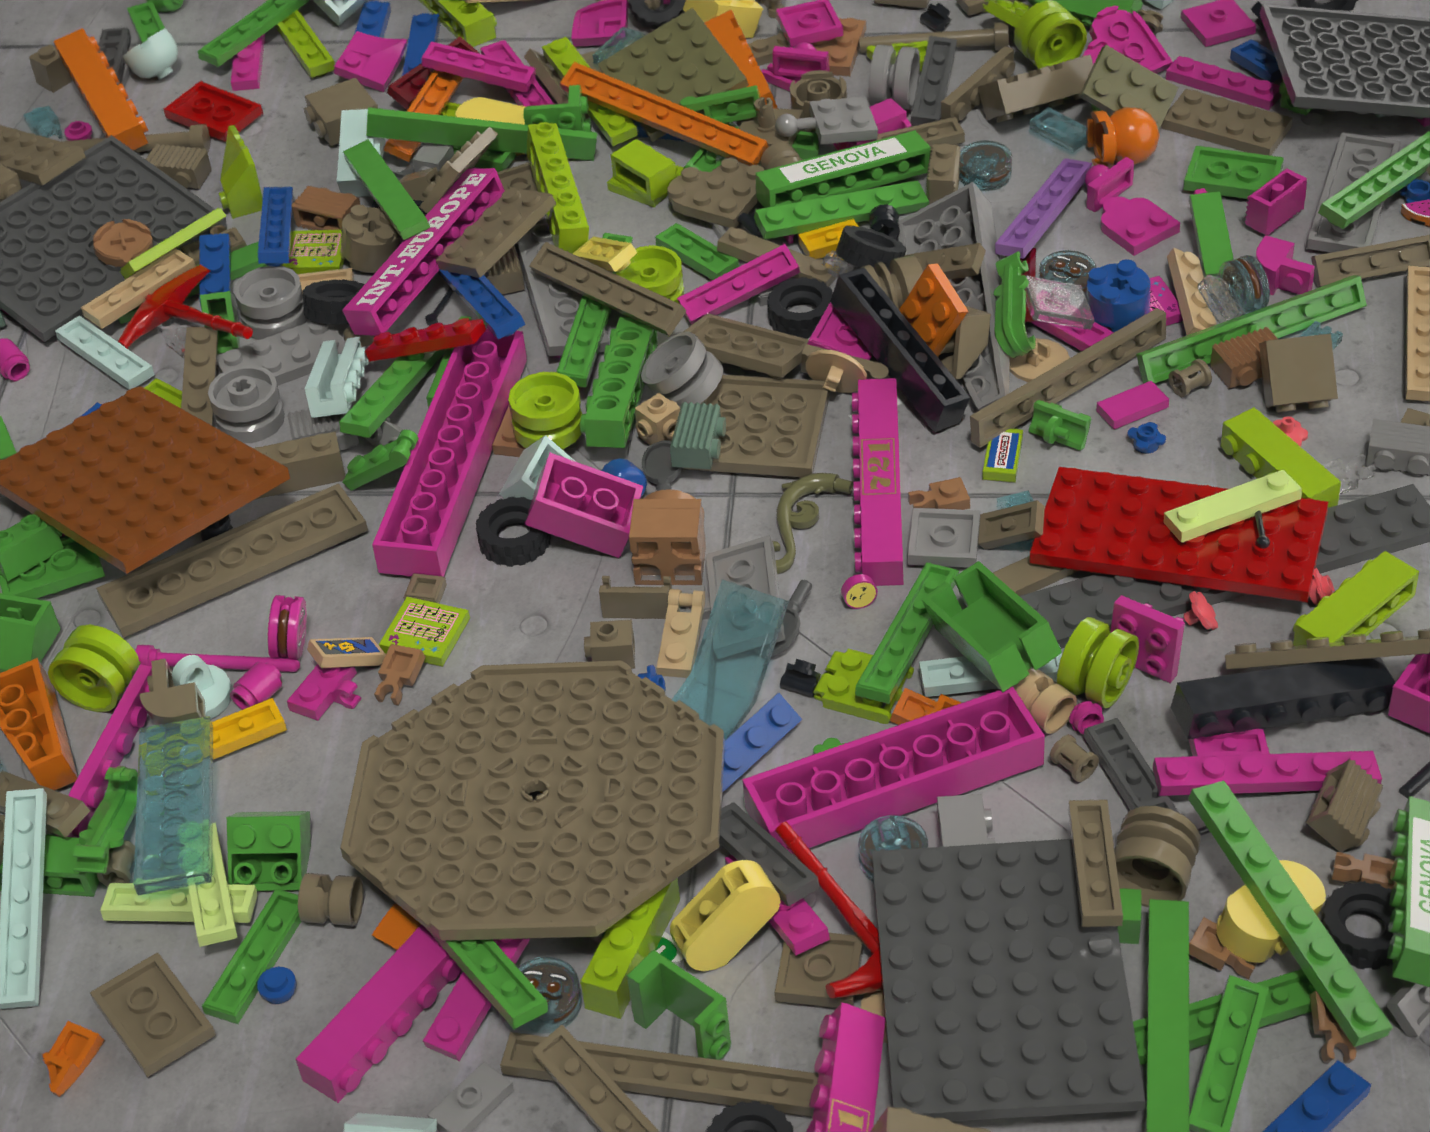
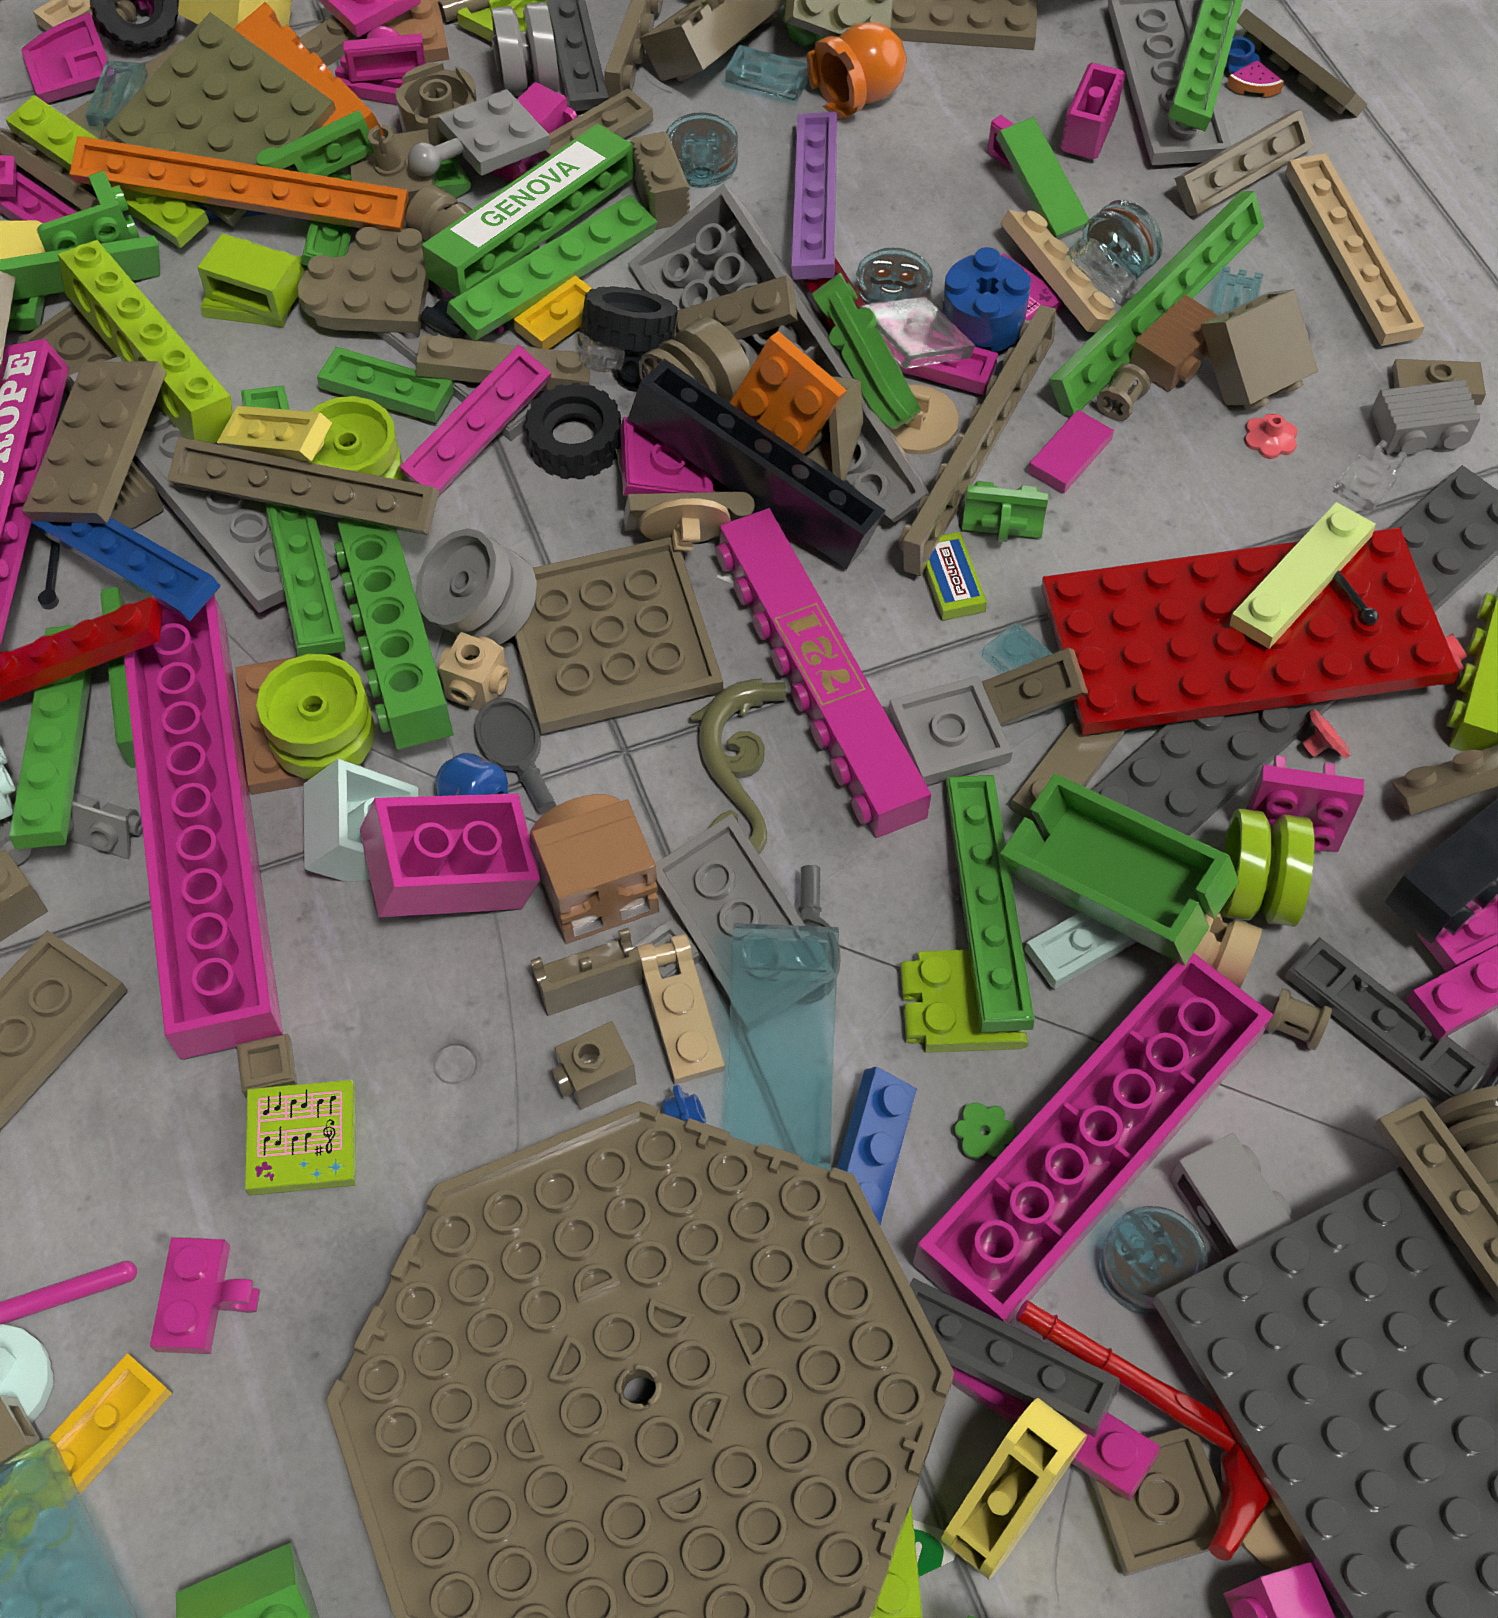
camera: 30 degrees left, 15 degrees up
(256, 685) = (89, 1339): dark pink brick -> none
(287, 627) = (93, 1222): dark pink head -> none
(346, 652) = (206, 1228): tan tile -> none
(380, 460) = (100, 875): bright green plate -> none
(398, 669) = (298, 1219): medium nougat plate -> none
(509, 550) = (341, 957): black tyre -> none
(696, 436) = (549, 685): sand green brick -> none
(749, 345) = (536, 512): dark tan plate -> none
(800, 677) = (879, 1020): black plate -> none
(859, 591) = (886, 854): tile -> none
(888, 217) = (617, 268): black wheel -> none
(914, 705) = (1068, 1015): orange slope -> none
(942, 495) = (910, 663): medium nougat plate -> none
(1085, 715) = (1277, 948): dark pink plate -> none
(1107, 182) = (868, 135): dark pink tile -> none
(1136, 223) = (930, 184): dark pink plate -> none
(1146, 437) = (1115, 495): blue plate -> none
(1230, 171) = (1011, 82): bright green plate -> none
(1267, 449) = (1290, 478): lime brick -> none
(1281, 269) = (1134, 183): dark pink brick -> none

